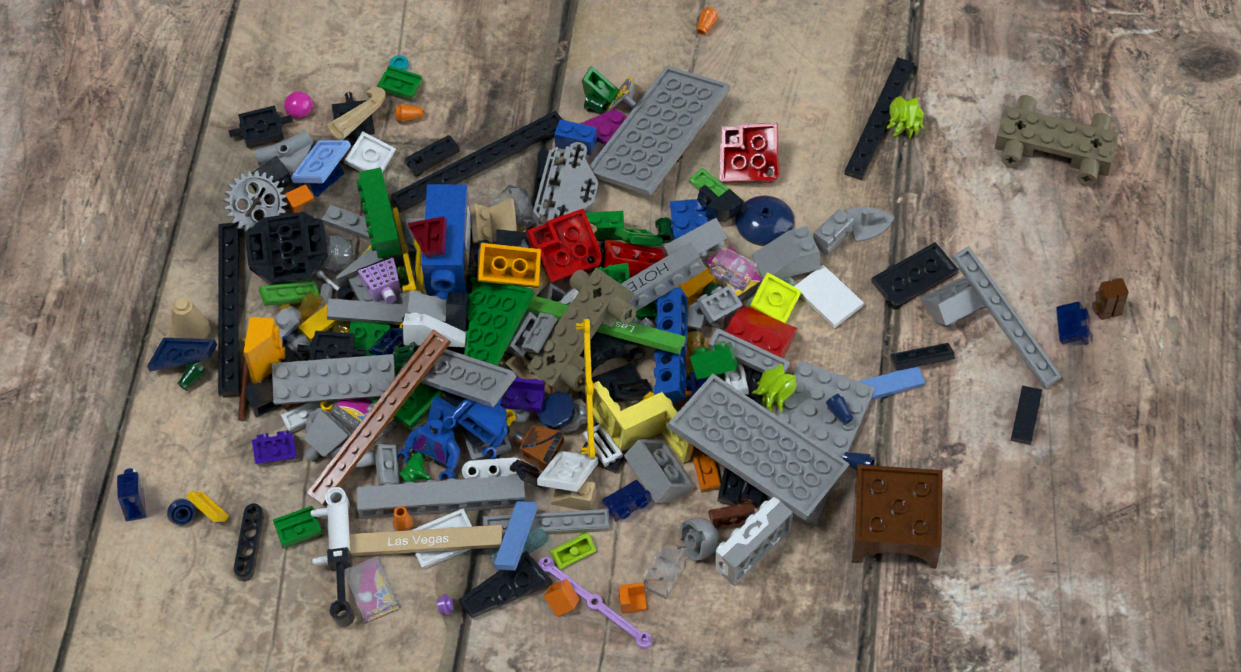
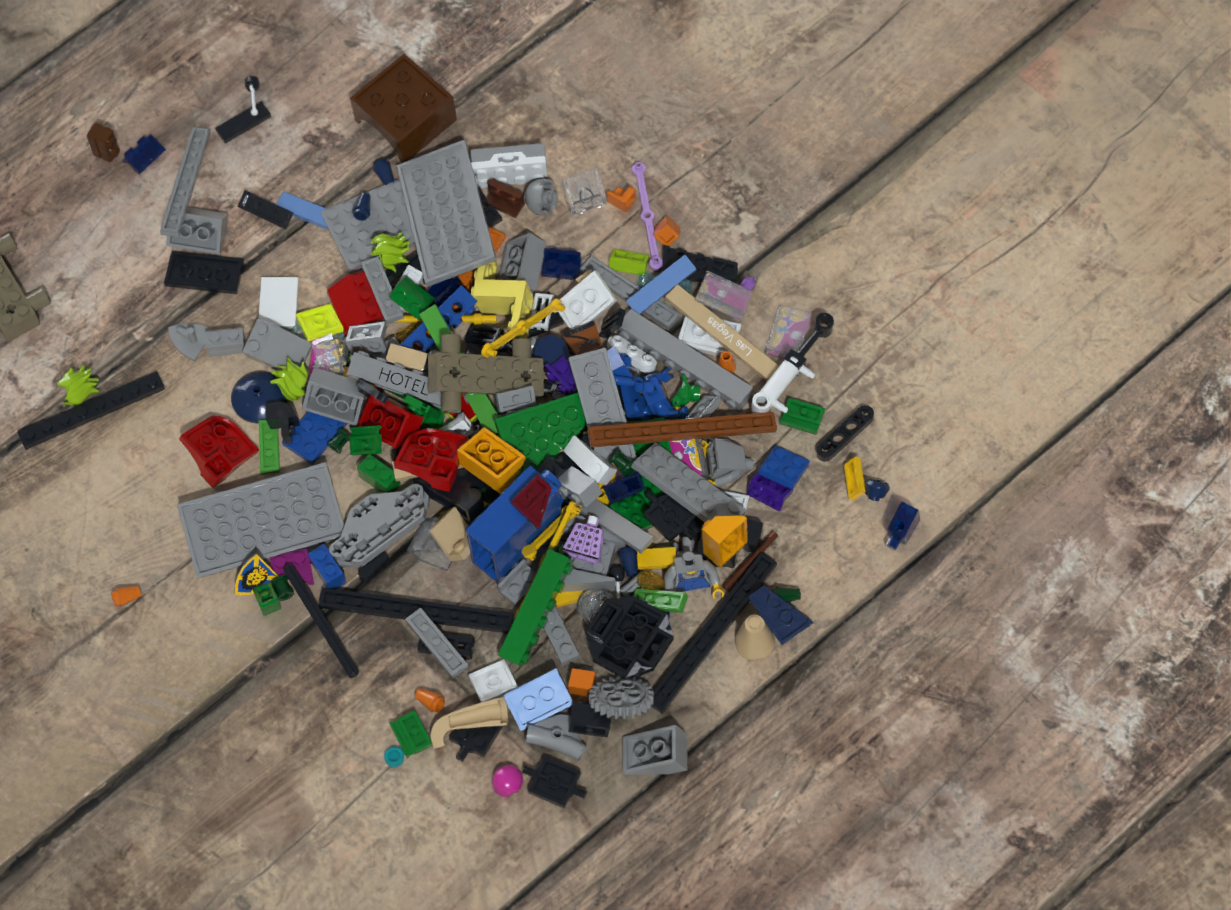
camera: 135 degrees left, 5 degrees up
(197, 195) = (655, 752): none -> light grey slope
(276, 471) = (784, 467): none -> blue plate
(435, 142) = (436, 643): none -> light grey plate
(453, 569) = (723, 296): none -> clear piece
(543, 103) = (321, 621): none -> black axle
(660, 250) = (366, 389): none -> black plate
(663, 303) = (407, 357): none -> tan slope
(746, 237) = (291, 380): none -> lime hair
(1054, 448) = (252, 85): none -> hinge

